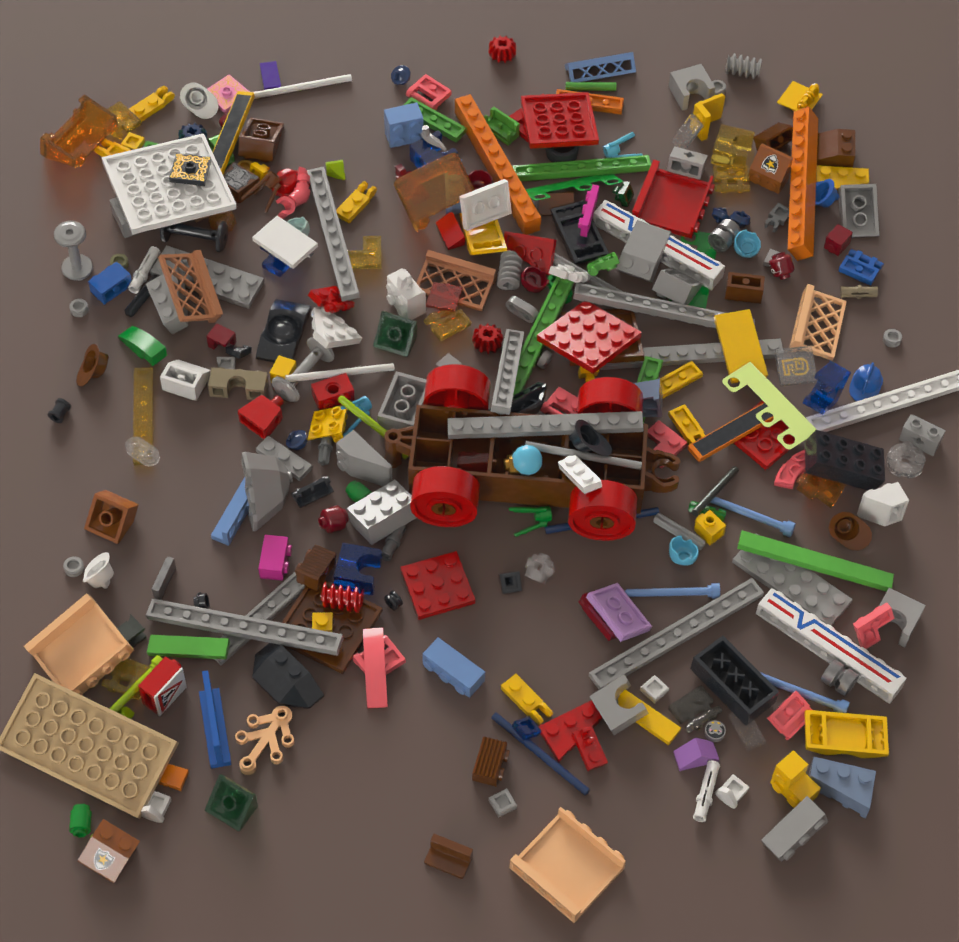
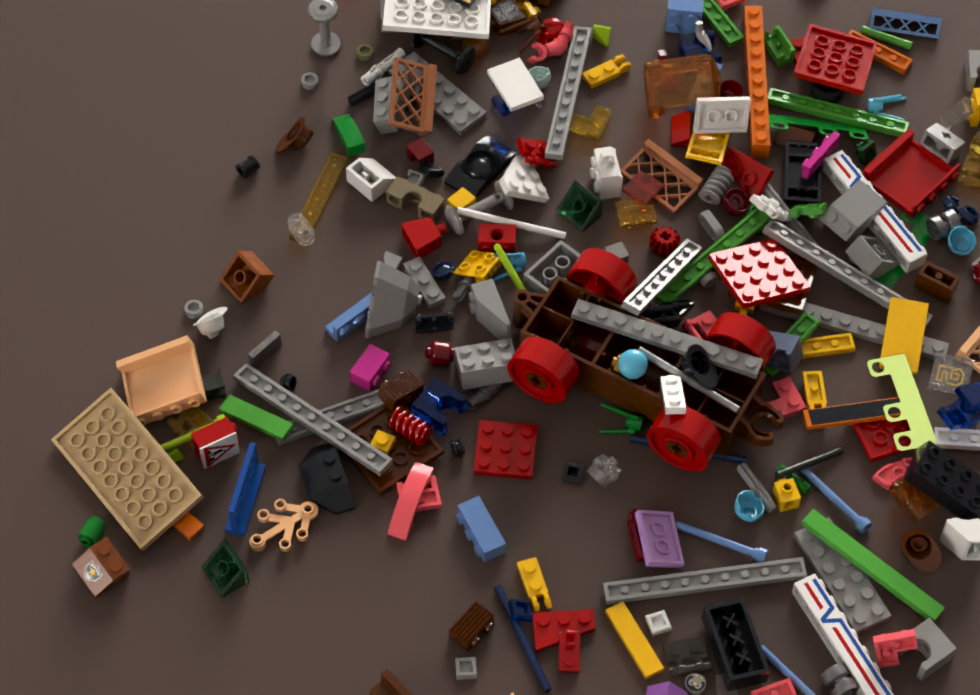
camera: 25 degrees right, 0 degrees up
(110, 283) = (346, 67): blue brick -> none
(156, 807) = (161, 547): white tile -> none
(240, 447) = (392, 260): none -> light grey tile
(357, 491) = (473, 335): green brick -> none
(607, 704) = (603, 623): light grey piece -> none

